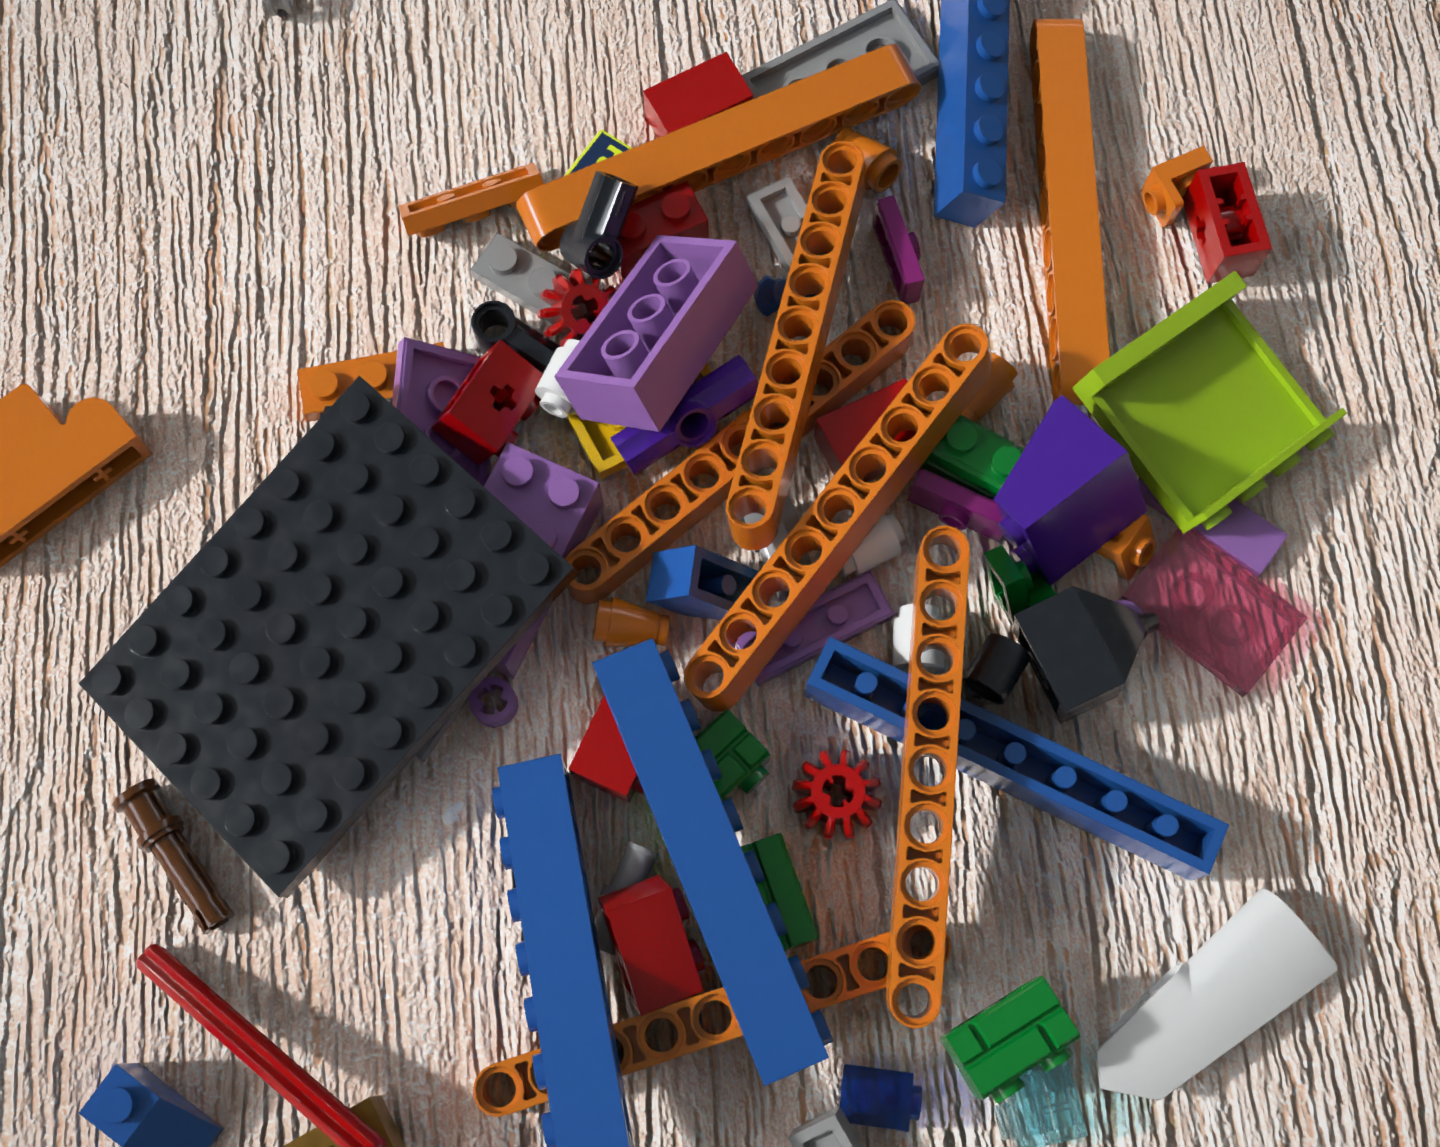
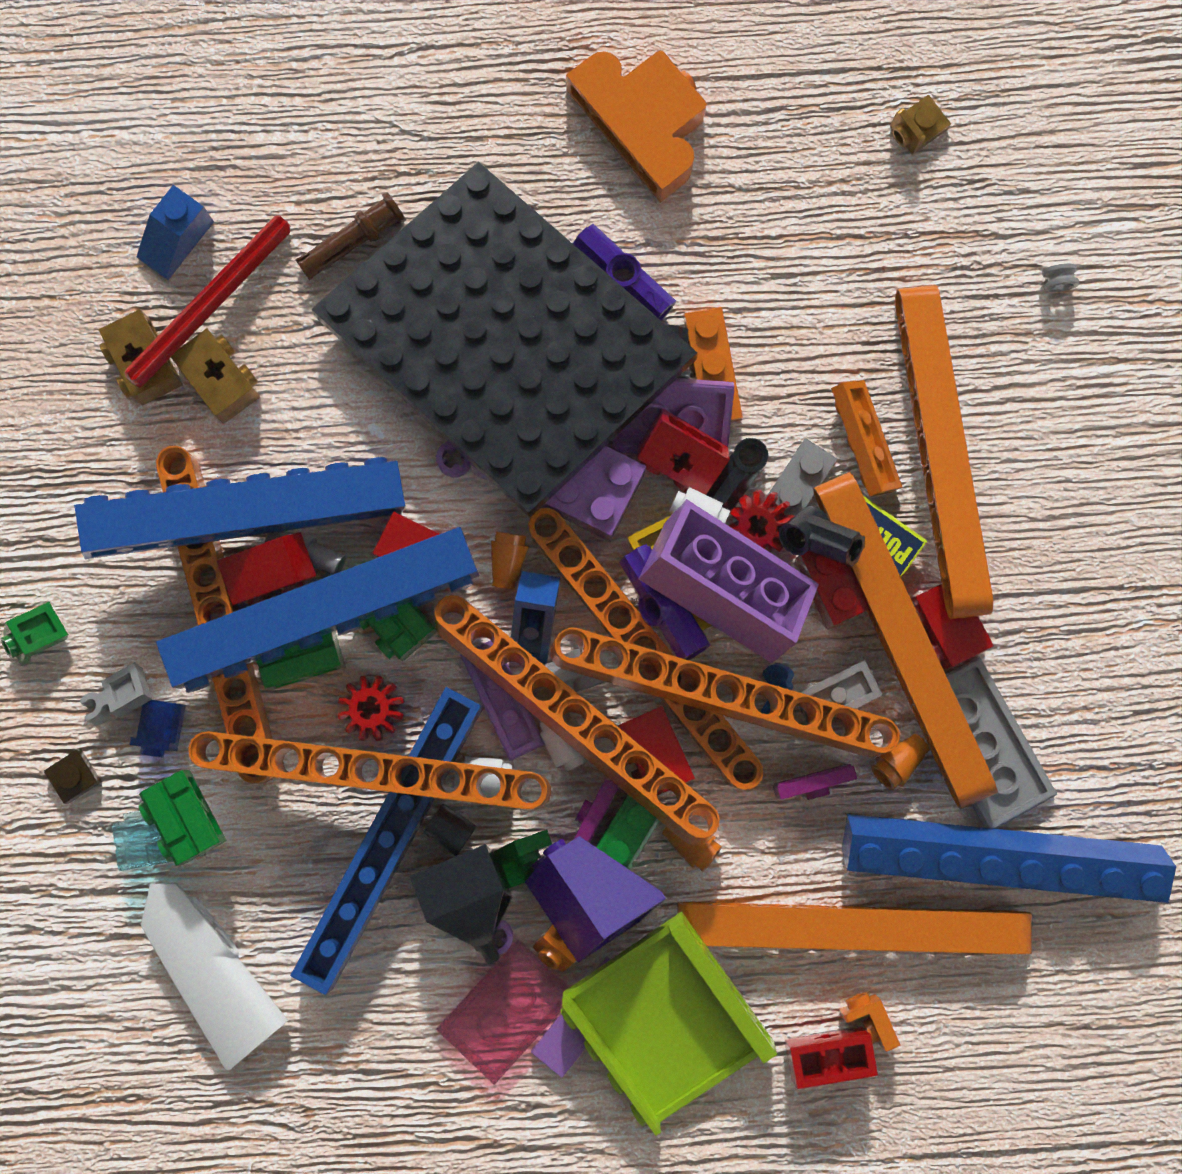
camera: 90 degrees right, 10 degrees up
(74, 148) = (919, 124): none -> pearl gold bracket
(226, 498) = (611, 258): none -> dark purple piece
(352, 1069) = (200, 359): none -> pearl gold brick
(489, 106) = (943, 453): none -> orange beam

